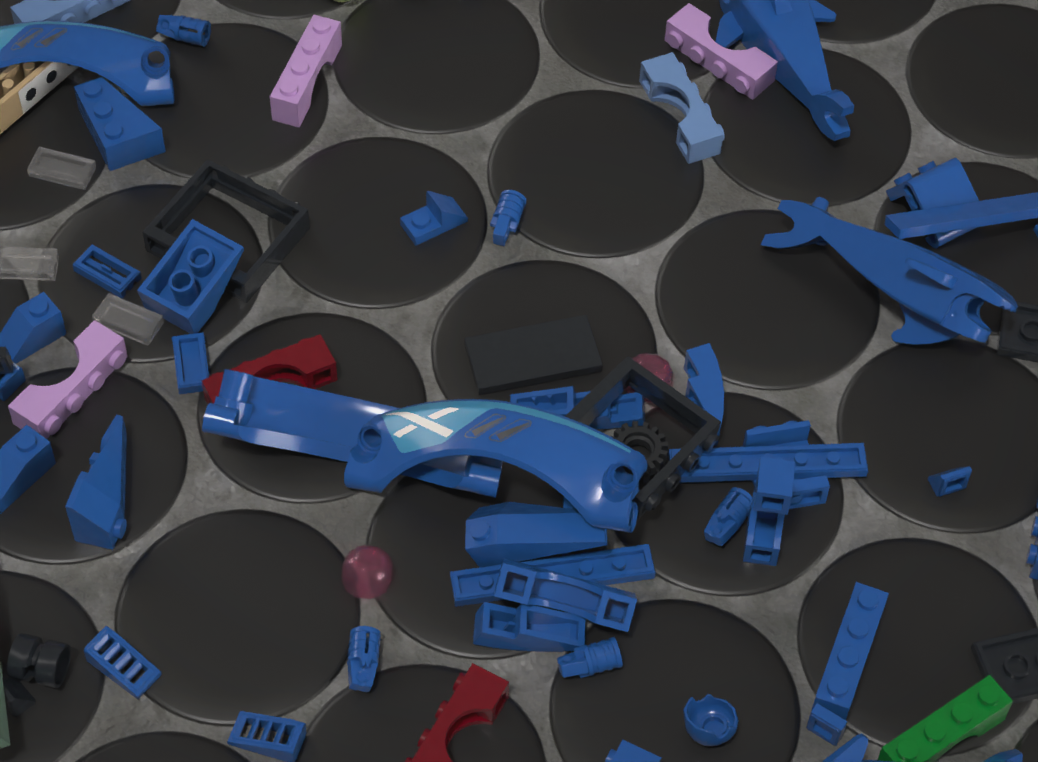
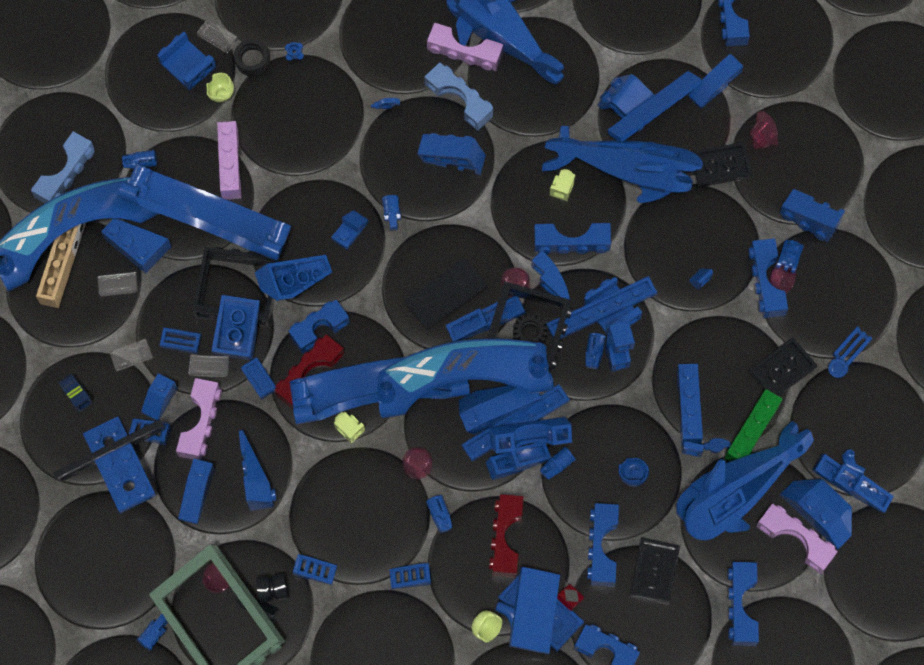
camera: 20 degrees left, 15 degrees up
(230, 113) = (205, 211): none -> blue panel
(288, 478) = (348, 426): none -> yellowish green brick
(312, 237) = (291, 277): none -> blue wedge
(339, 315) = (330, 315): none -> blue arch
(570, 81) = (386, 103): none -> blue piece
(637, 169) = (452, 150): none -> blue wedge
(783, 273) = (562, 185): none -> yellowish green brick
(798, 362) = (550, 240): none -> blue arch
(876, 736) = (717, 445): none -> blue piece

